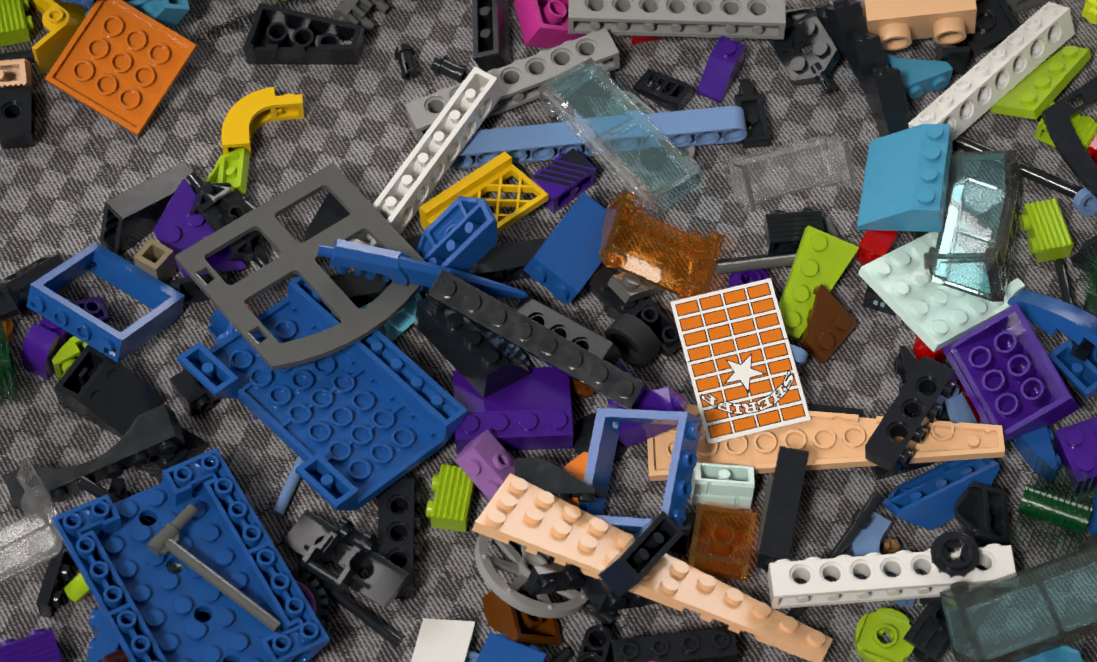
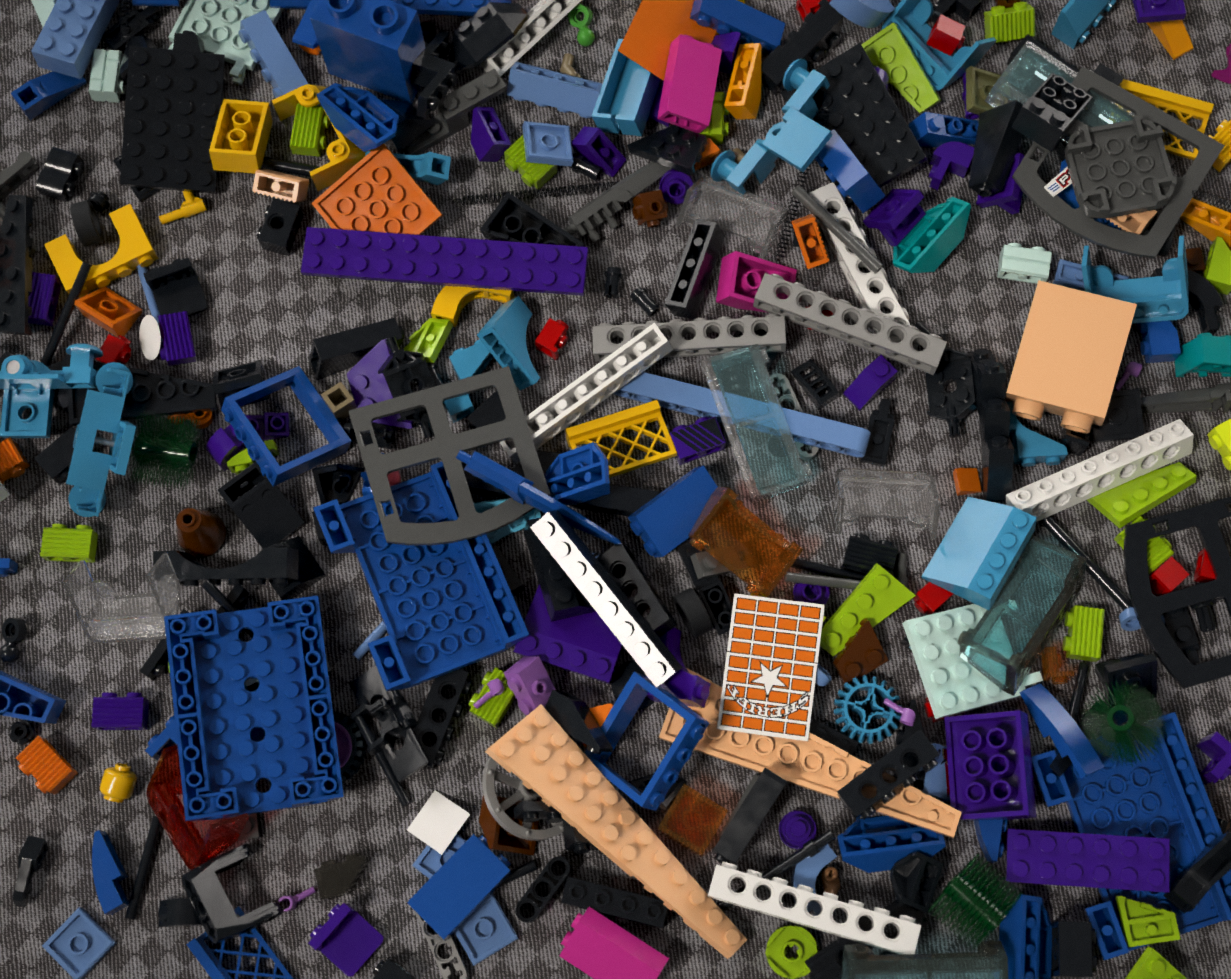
camera: 25 degrees right, 15 degrees up
(46, 439) = (200, 532): none -> reddish brown cone
(167, 541) = (248, 666): dark grey bar -> none
(177, 338) = (336, 482): none -> black slope
(215, 89) = (445, 261): none -> dark purple plate
(282, 177) = (466, 363): none -> dark azure arch
(318, 144) = (506, 340): none -> dark azure arch
(364, 133) = (552, 337): none -> red brick
(452, 482) = (495, 687): none -> medium lavender hand
(640, 554) = (609, 826): black brick -> none
(722, 485) = (713, 770): light aqua brick -> none
(834, 515) = (796, 829): none -> dark purple plate
(860, 131) = (966, 481): none -> orange slope
(870, 367) = (855, 707): none -> dark azure gear
(902, 357) = (908, 715): none -> medium lavender hand
(953, 542) = (882, 922): black gear -> none
(1027, 271) = (1051, 663): none -> clear orange bracket

